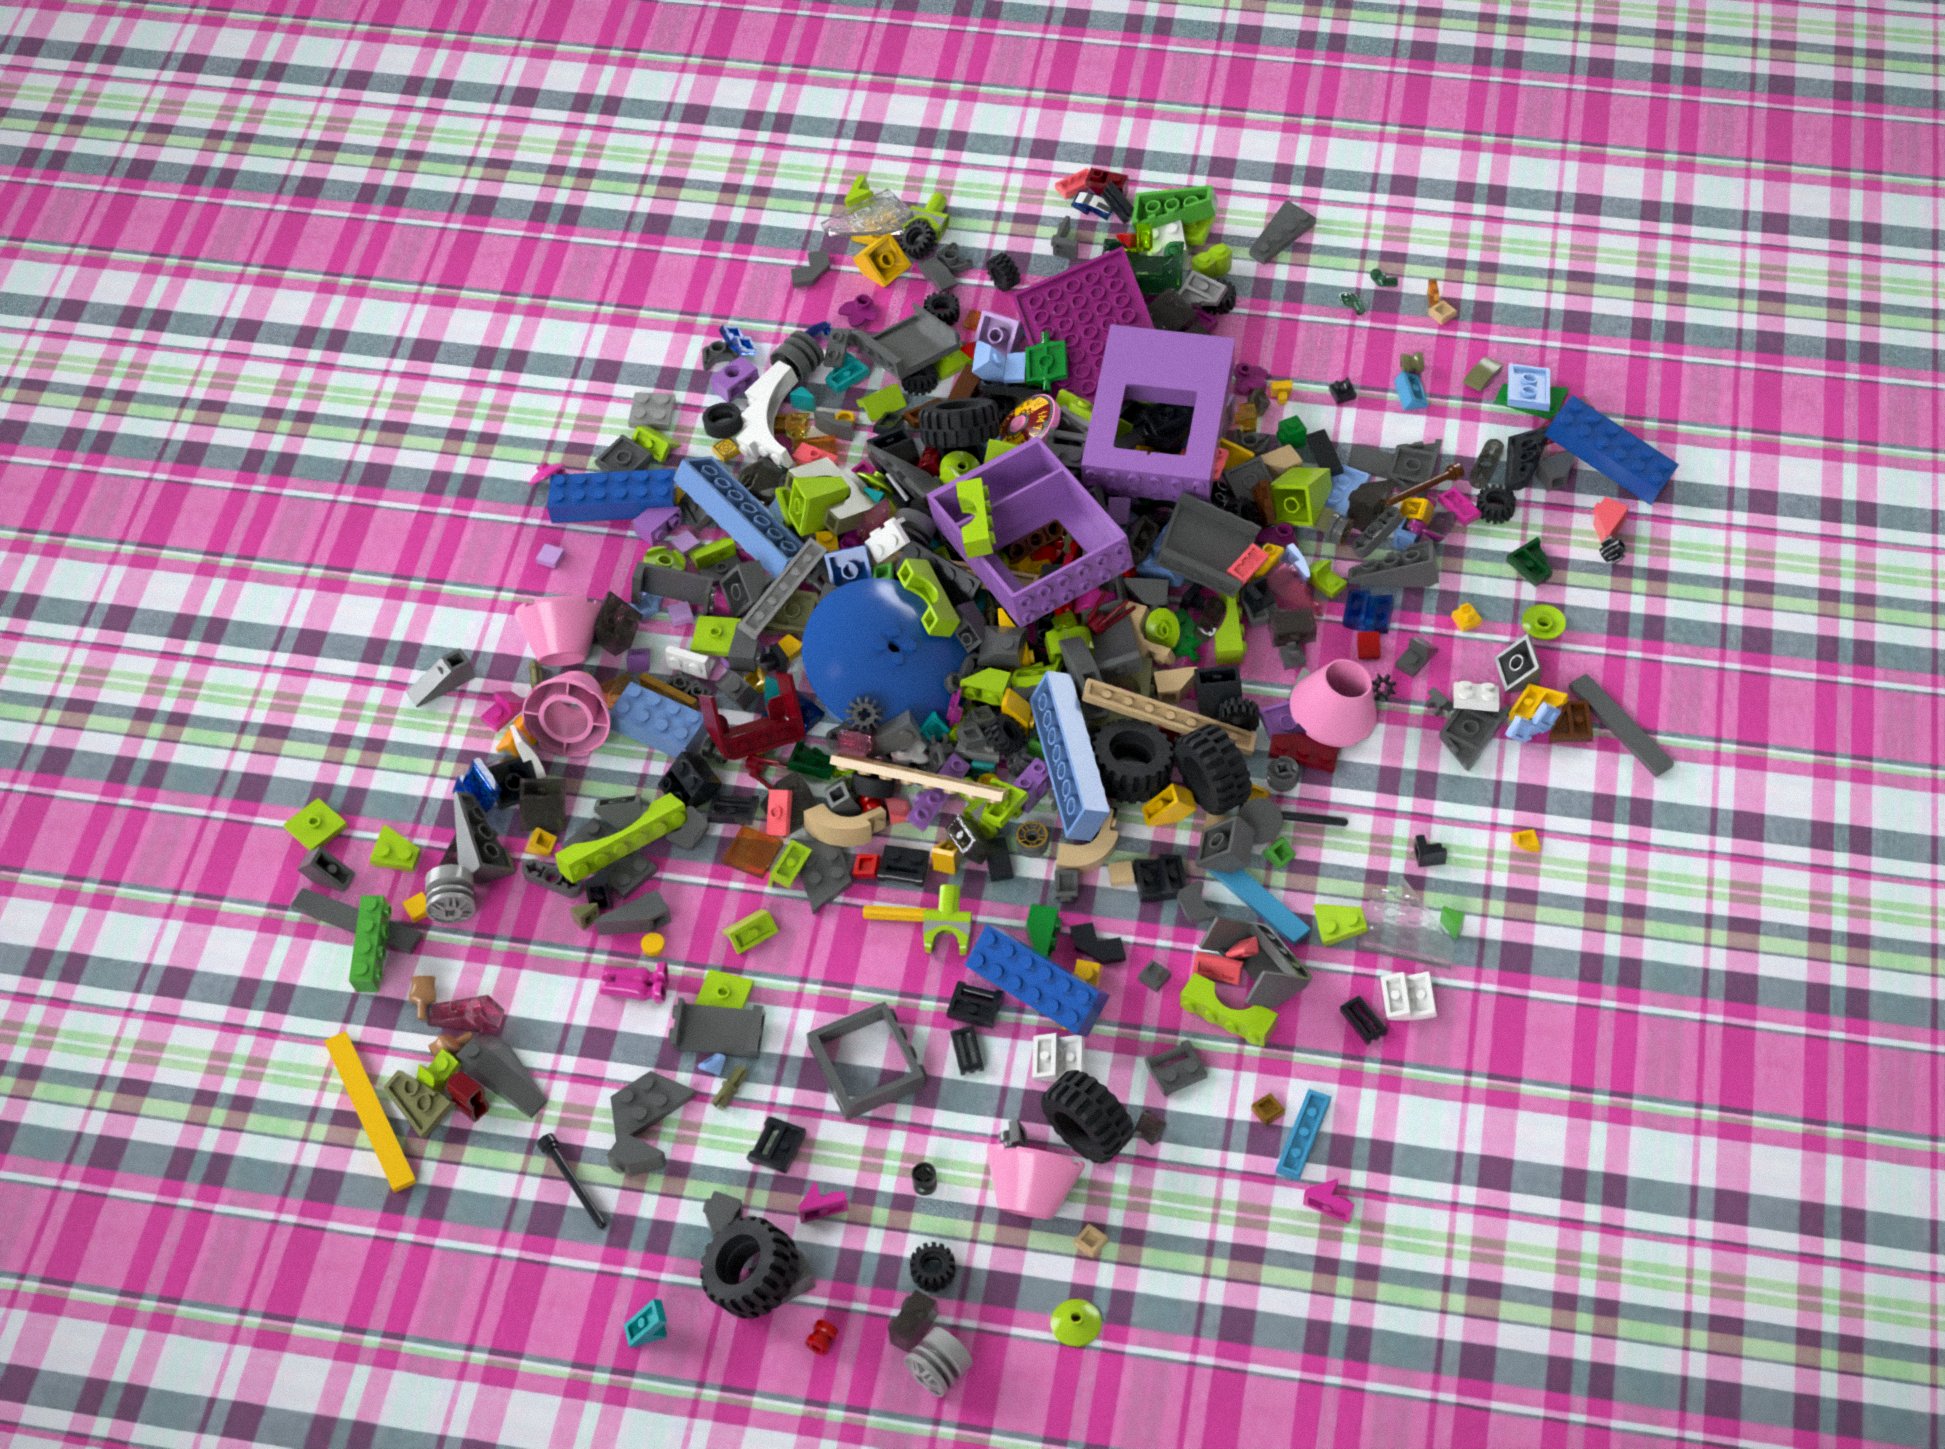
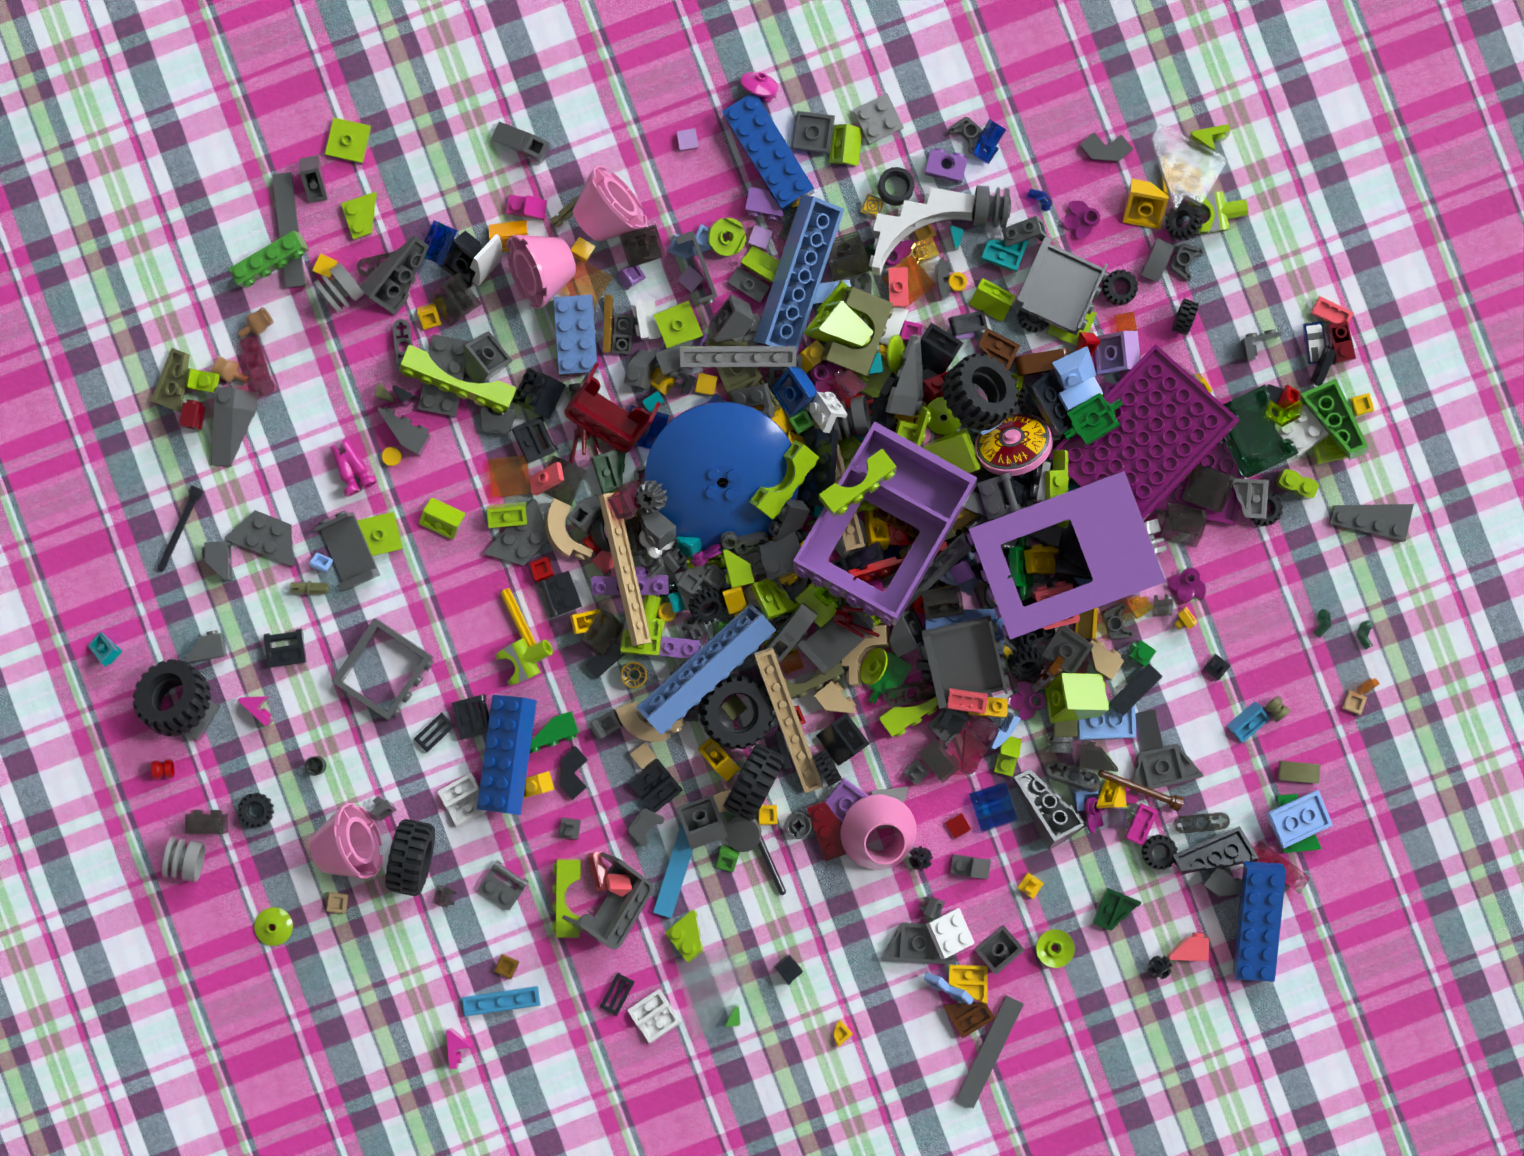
camera: 60 degrees right, 35 degrees up
(370, 1112) = (151, 350): yellow tile -> none

